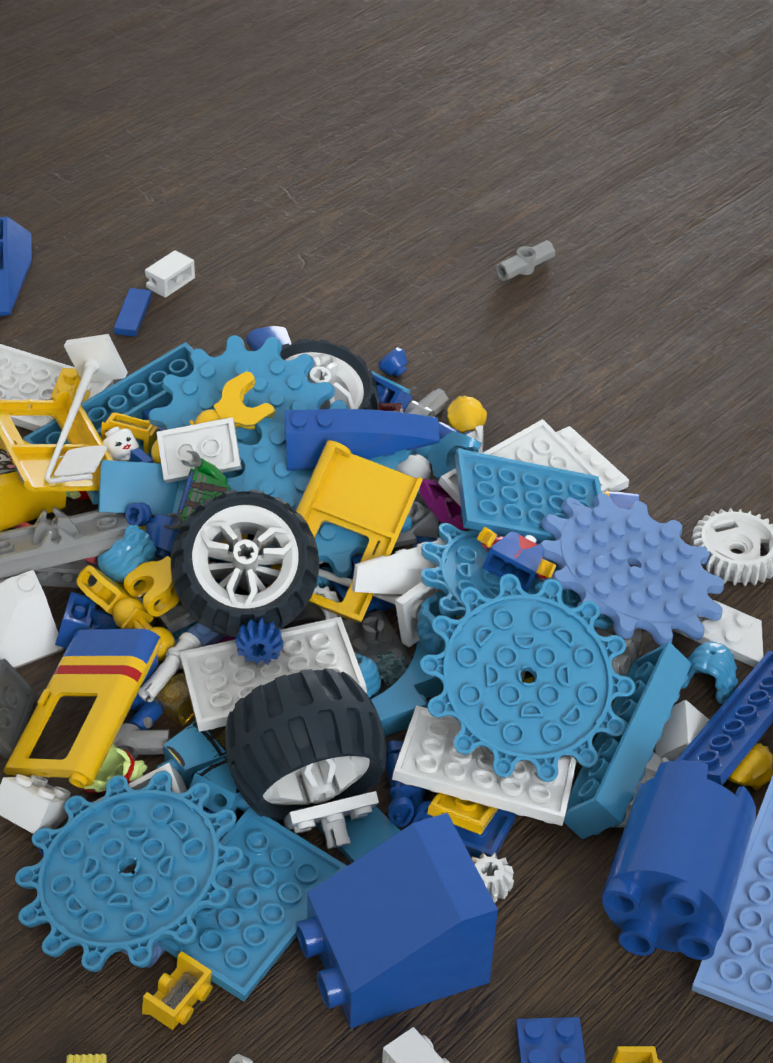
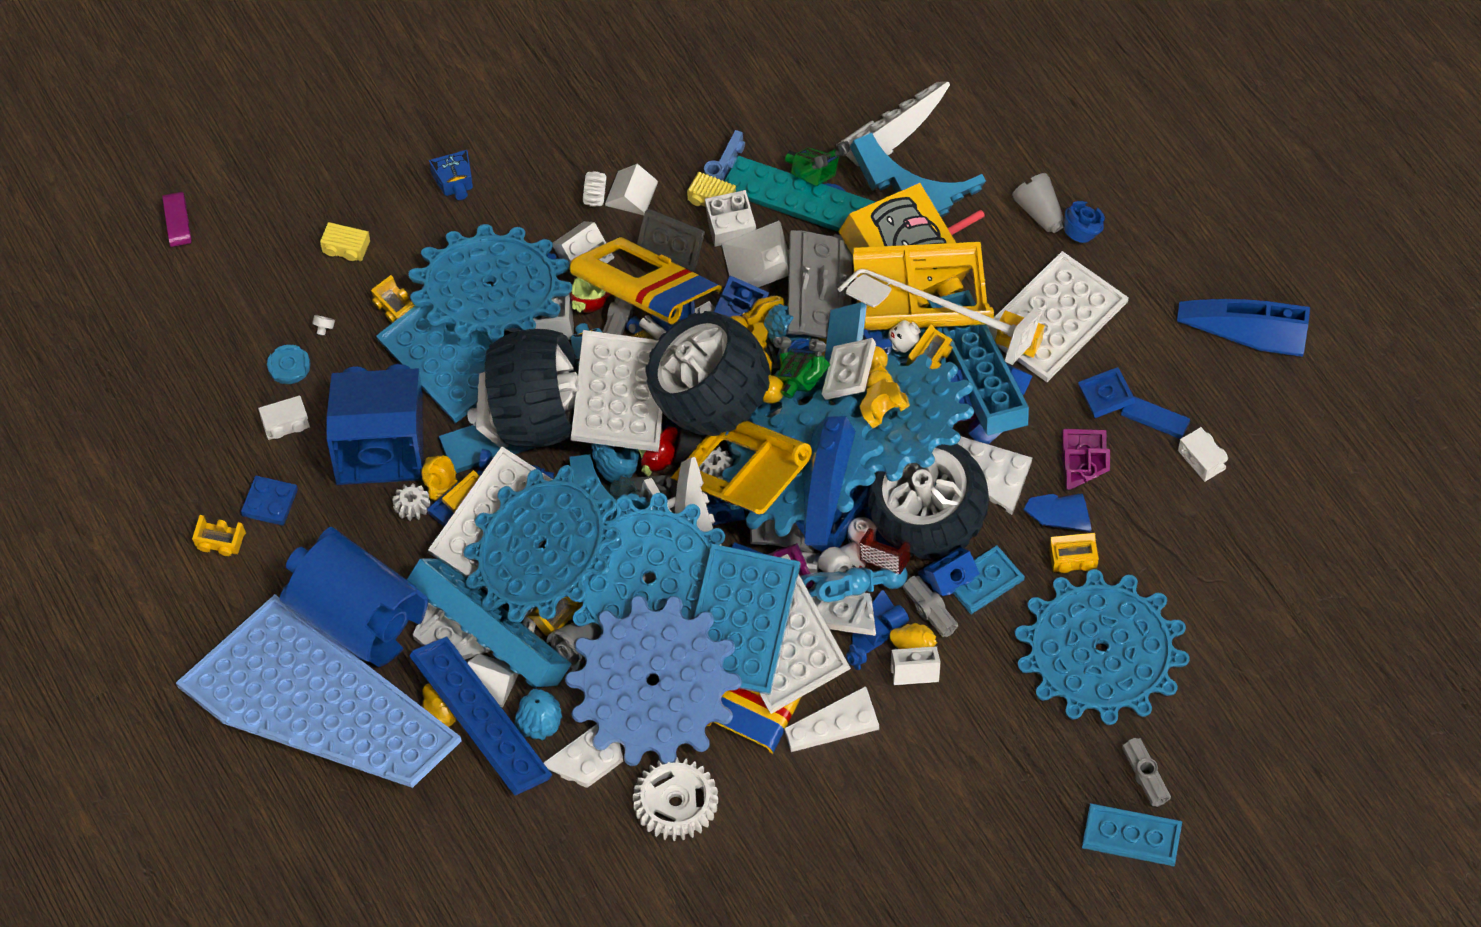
camera: 110 degrees right, 15 degrees up
(124, 334) = (1106, 392): none -> blue plate
(133, 516) = (818, 334): blue bush -> none
(198, 337) = (1084, 456): none -> magenta slope
(259, 641) = (634, 375): blue gear -> none
(315, 327) = (1073, 552): none -> yellow window
(393, 362) = (1010, 604): blue cone -> none
(436, 300) = (1110, 615): none -> dark azure plate
(501, 410) = (915, 665): none -> white brick
(515, 556) = (664, 573): blue torso -> none
(586, 266) = (1132, 834): none -> dark azure tile

